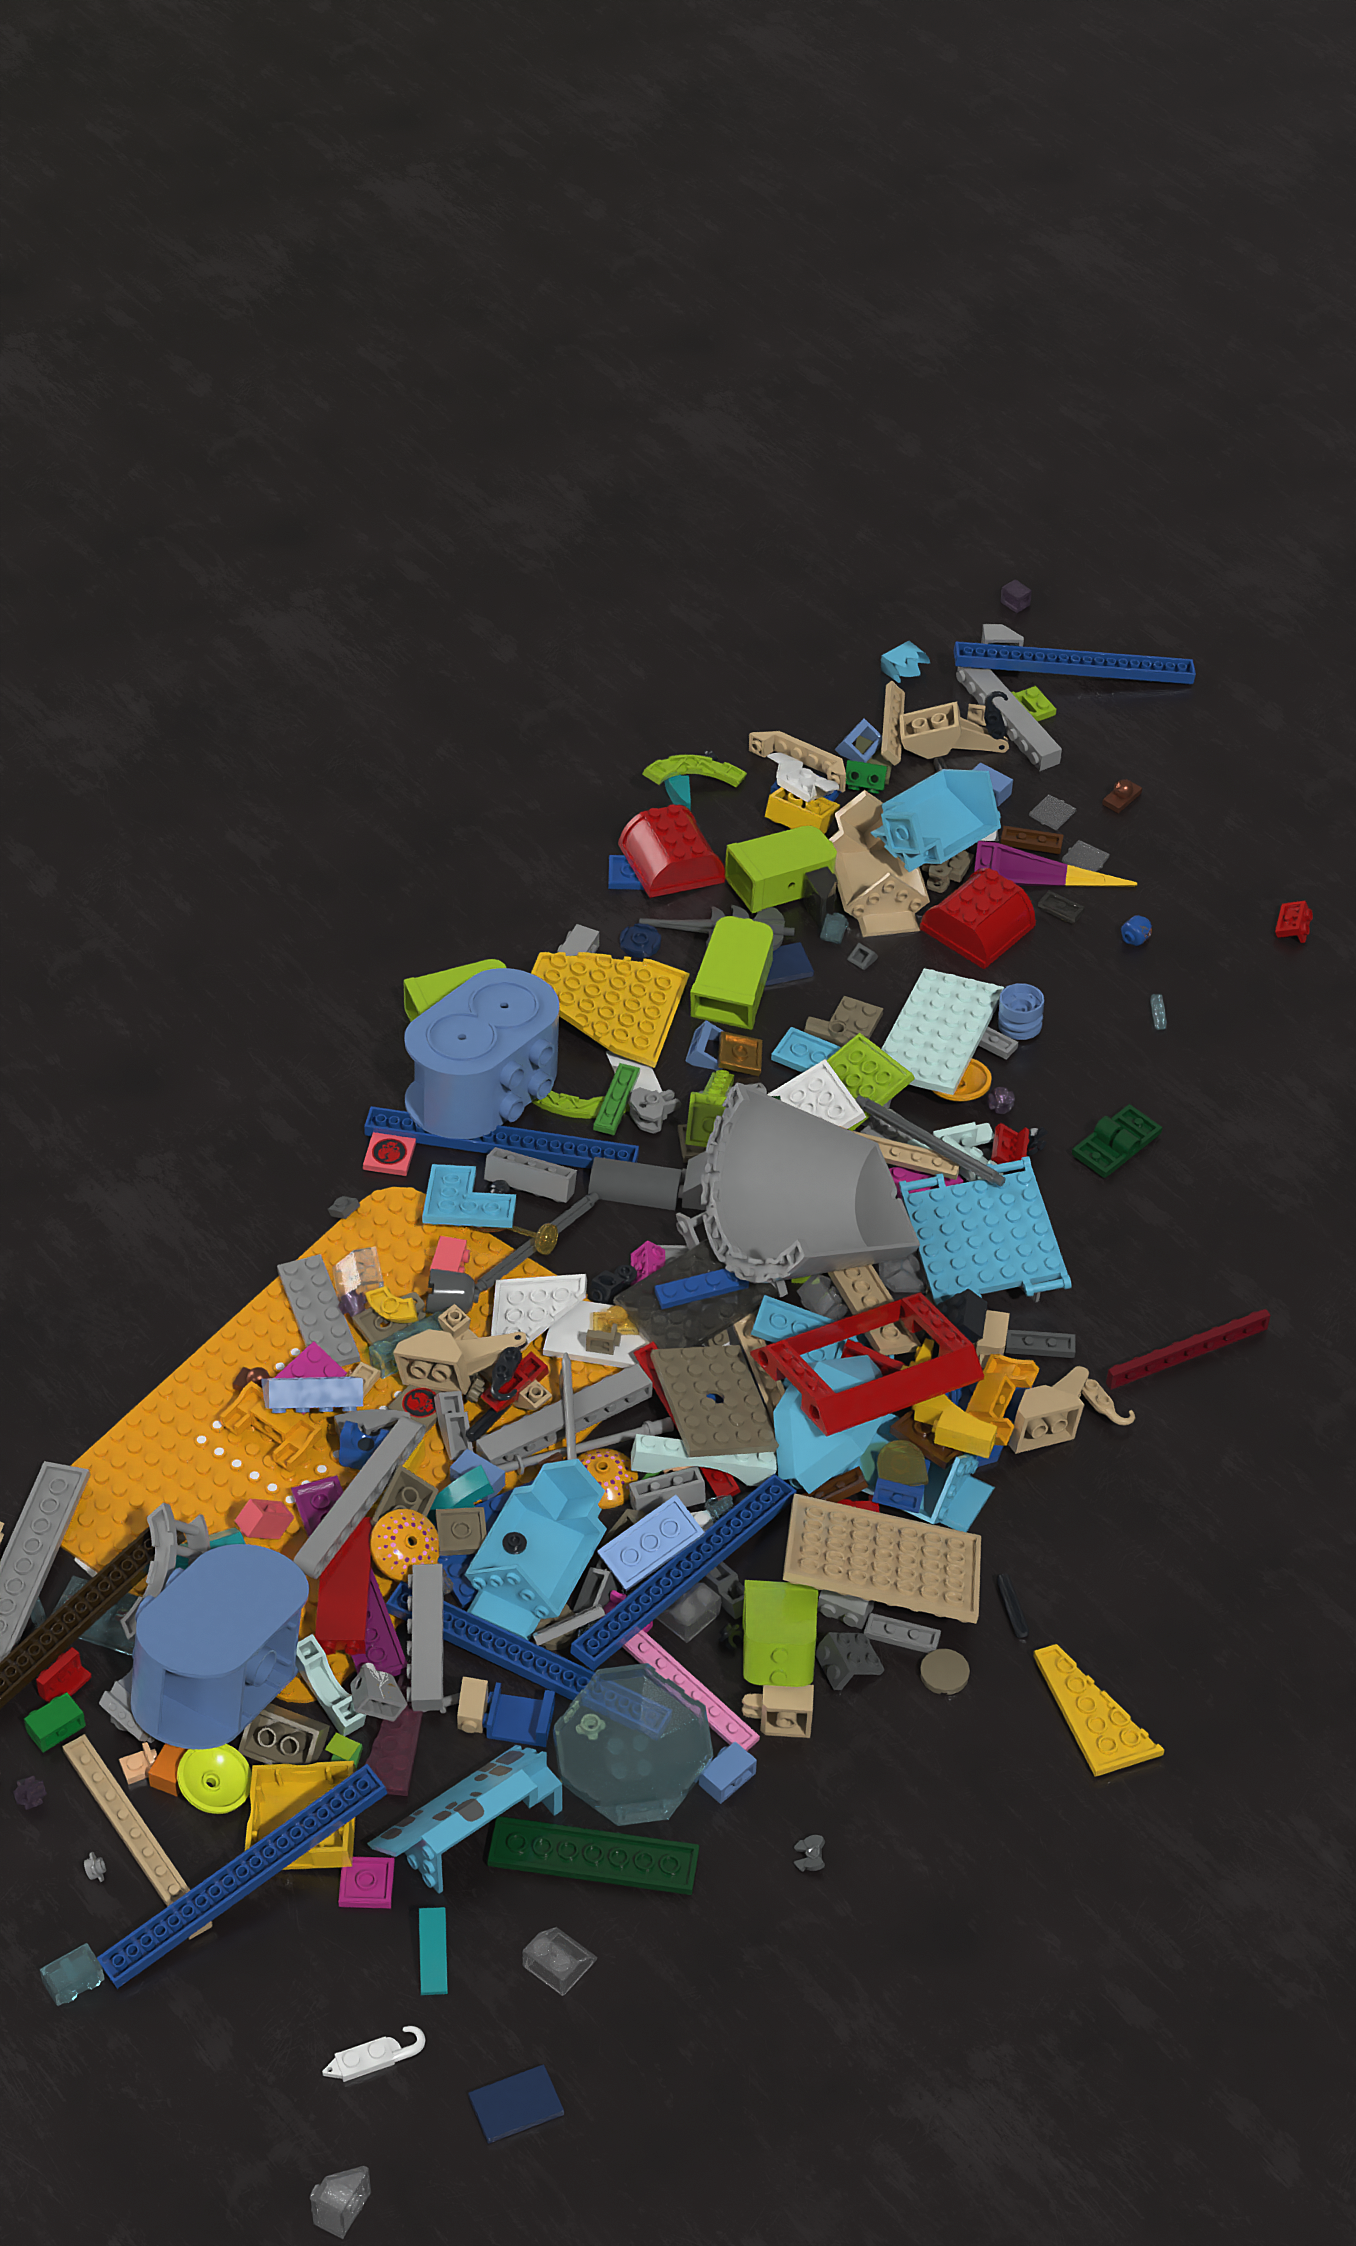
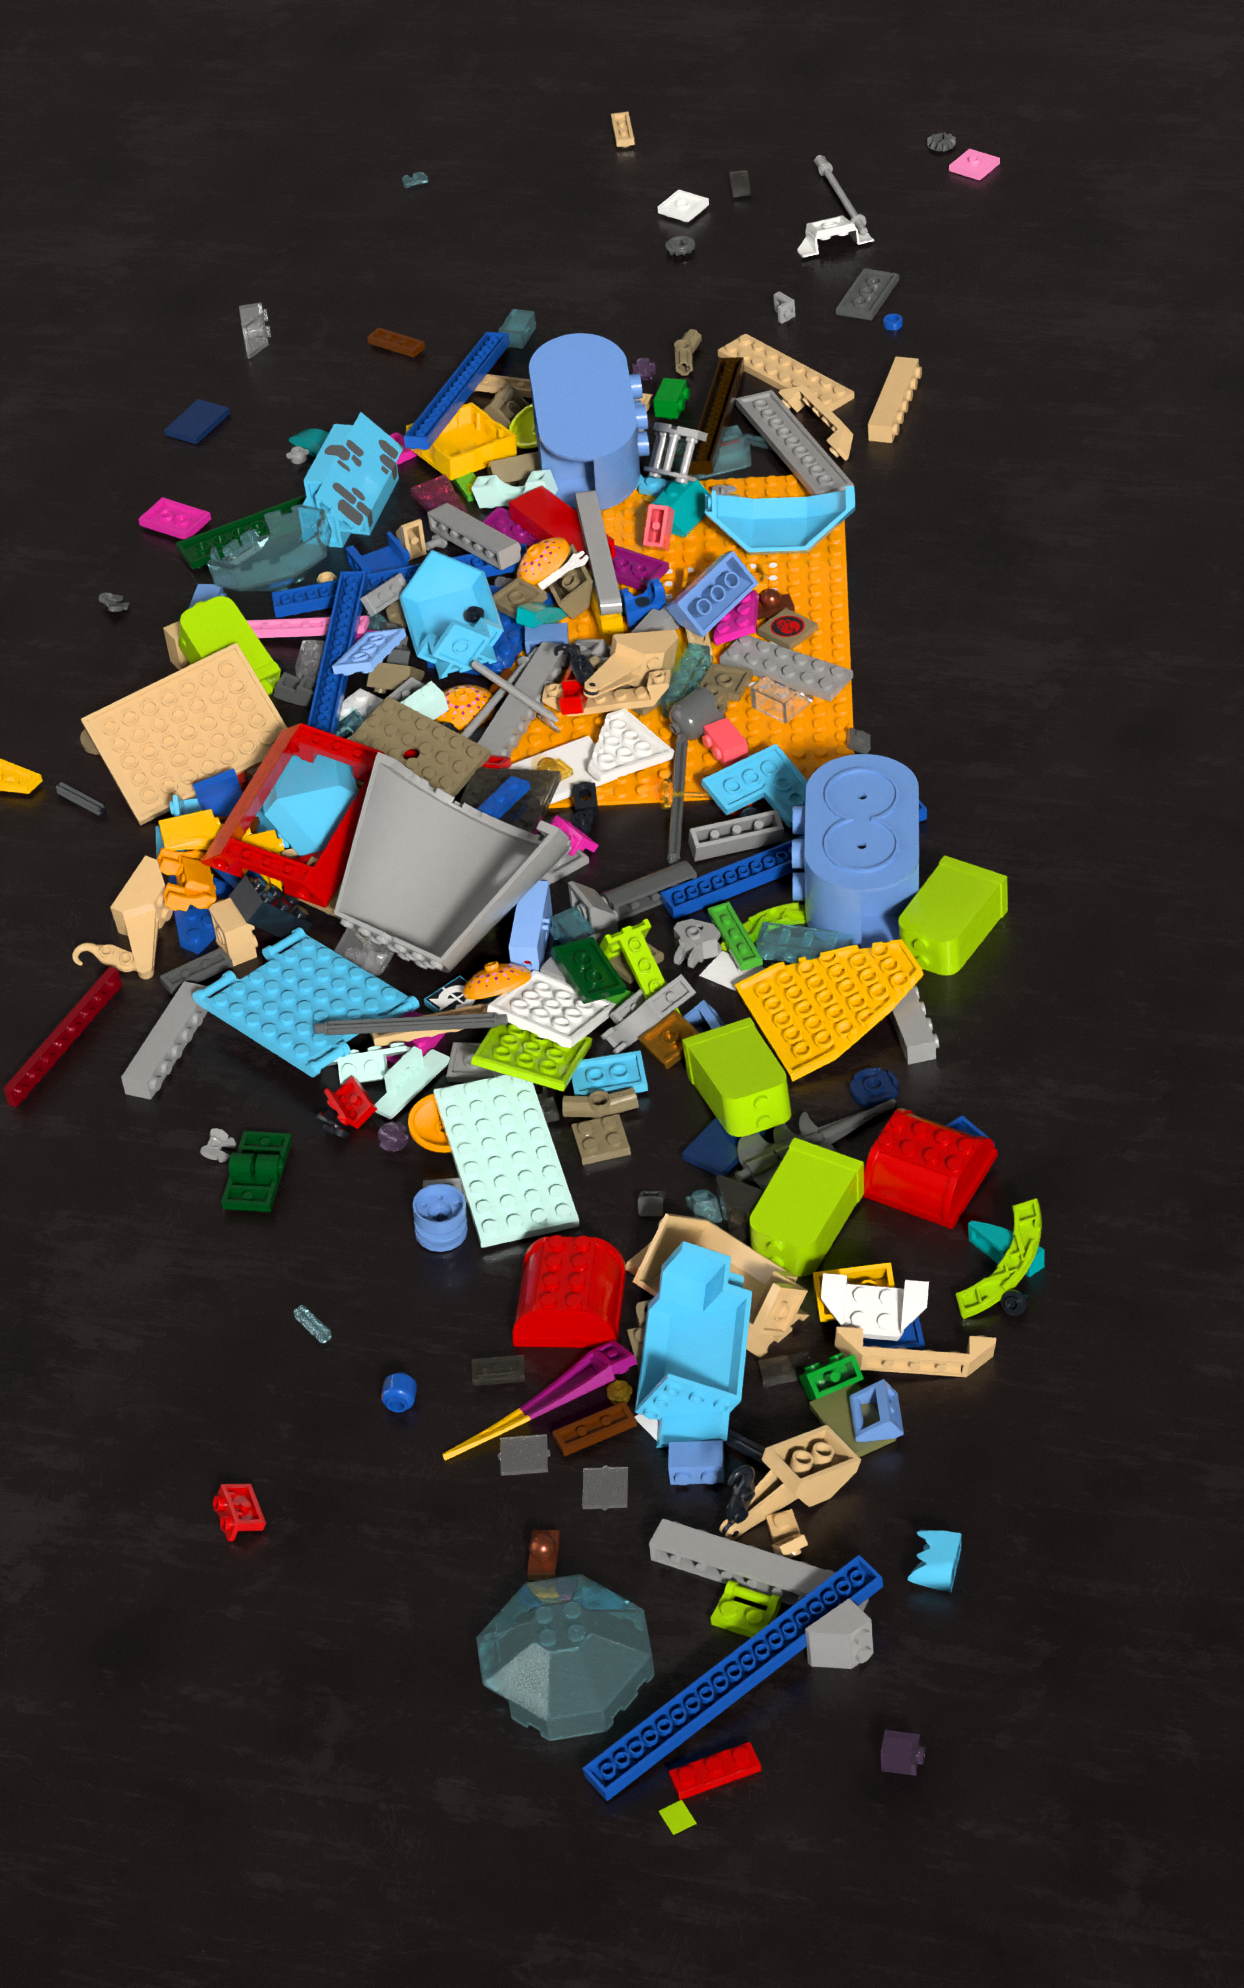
camera: 150 degrees right, 5 degrees down
(62, 1676) = (692, 417): red bracket -> none
(149, 1449) = (779, 524): none -> medium azure panel
(206, 2064) = (396, 342): none -> reddish brown plate
(213, 1841) = (505, 405): none -> dark tan slope
(272, 1349) = (787, 629): none -> dark tan tile
(353, 1303) = (760, 669): clear purple gear -> none
(373, 2056) = (303, 396): white plate -> none
(377, 1694) = (475, 496): light grey torso -> none
(392, 1307) = (735, 680): yellow tile -> none
(393, 1497) = (573, 562): none -> white piece
(465, 1956) = (298, 455): none -> light grey plate
(557, 1959) = (231, 476): clear slope -> none
(583, 1057) = (791, 942): none -> clear light blue brick
(602, 1341) = (541, 749): dark tan bracket -> none
(662, 1938) = (174, 518): none -> dark pink plate
(734, 1067) = (649, 1014): none -> light grey piece
(891, 726) = (872, 1468): tan plate -> none
(902, 1463) = (225, 801): clear yellow tile -> none
(1107, 1291) = (164, 1043): none -> light grey brick
(1109, 644) = (714, 1770): none -> red plate
(1134, 1179) = (213, 1149): none -> light grey piece
(1155, 730) = (566, 1656): none -> clear light blue windscreen
(1157, 643) = (677, 1817): none -> lime sticker

